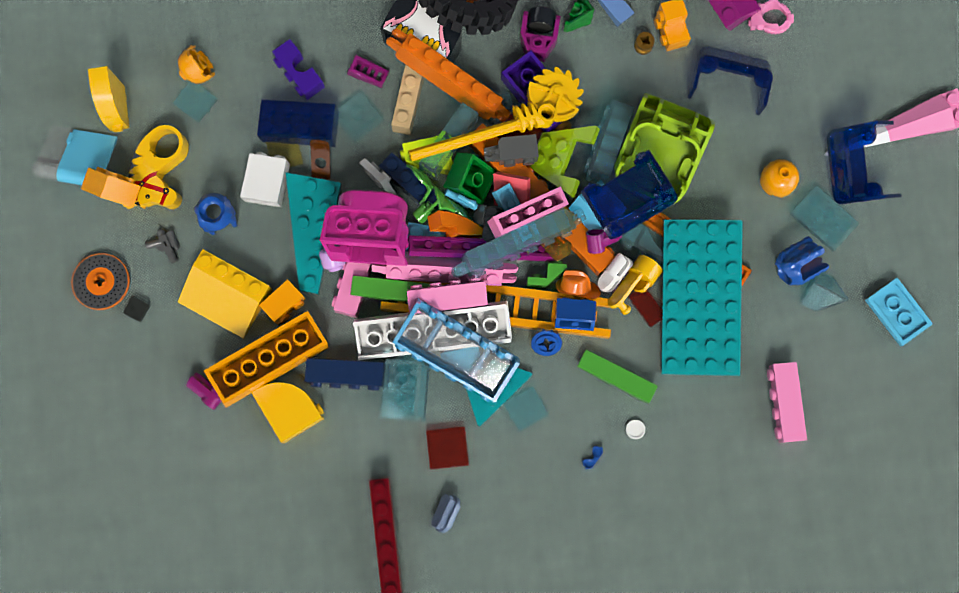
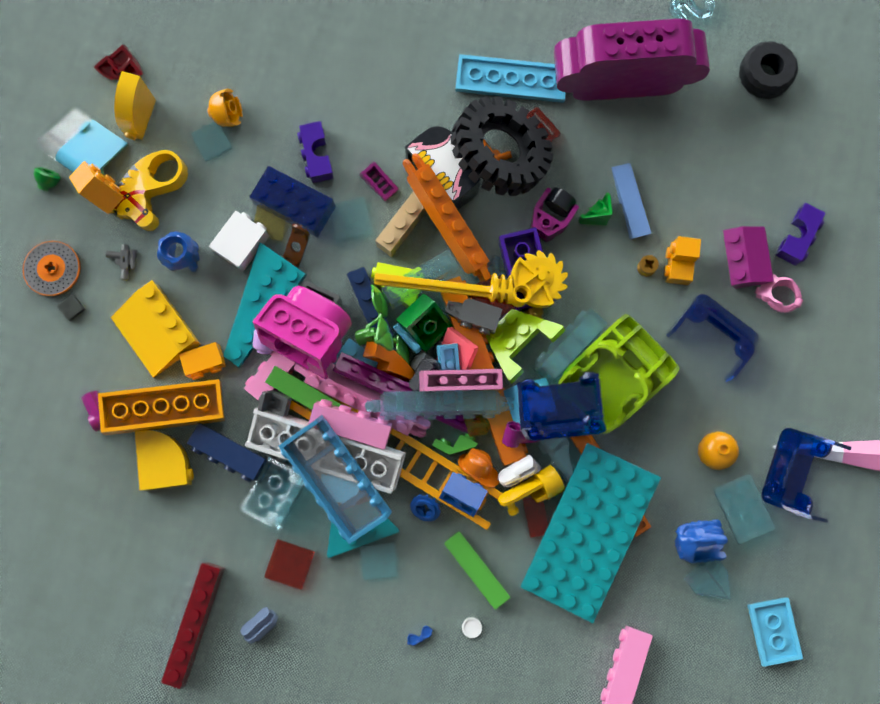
camera: 25 degrees right, 0 degrees up
(56, 201) = (46, 178): none -> green brick
(74, 68) = (118, 61): none -> dark red brick
(368, 309) = (274, 402): none -> dark grey bracket
(381, 179) = (343, 286): white wing -> none

